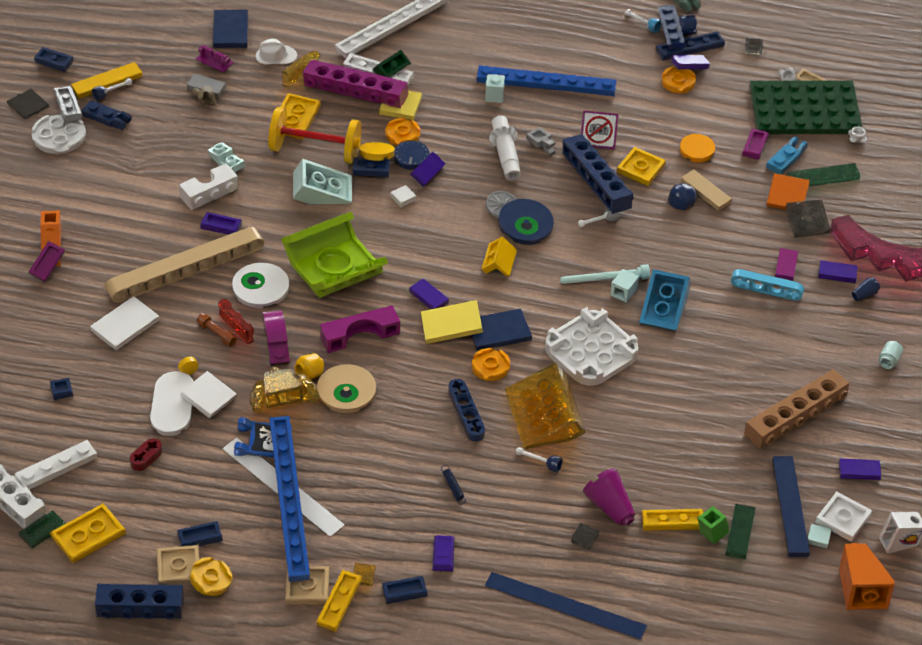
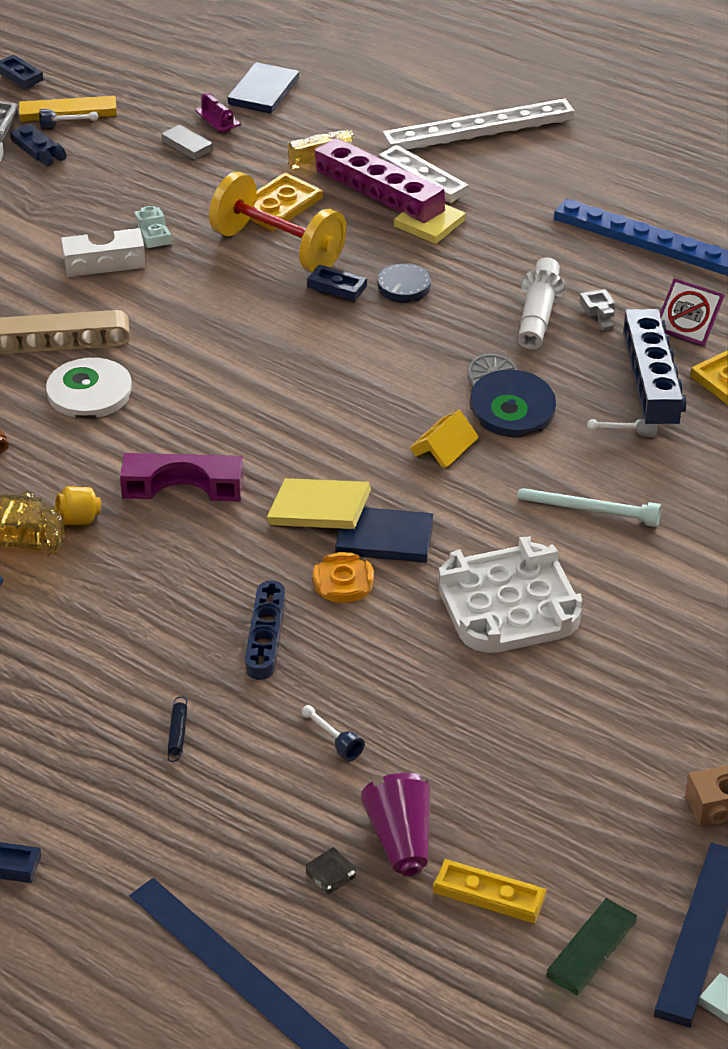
camera: 25 degrees right, 5 degrees down
(205, 95) = (176, 151): dark tan piece -> none
(220, 223) = (89, 299): dark purple tile -> none
(236, 321) = (21, 420): clear red hinge -> none
(275, 52) = (299, 123): white piece -> none
(276, 337) = (54, 451): magenta arch -> none
(321, 184) = (253, 286): light aqua slope -> none
(331, 256) = (205, 372): lime panel -> none
(346, 388) = (113, 550): tan tile -> none
(376, 151) = (355, 263): yellow tile -> none
(392, 64) = (442, 167): dark green slope -> none
(402, 130) = (411, 250): light orange tile -> none
(403, 196) = (359, 329): white tile -> none
(427, 169) = (413, 303): dark purple tile -> none
(428, 294) = (312, 459): dark purple tile -> none
(443, 553) = (97, 826): dark purple tile -> none
(494, 88) = (569, 228): light aqua brick -> none
(545, 408) = (383, 661): clear yellow slope -> none
(624, 285) = (609, 524): light aqua brick -> none
(665, 300) = (661, 560): dark azure slope -> none
(713, 525) = (543, 918): bright green brick -> none

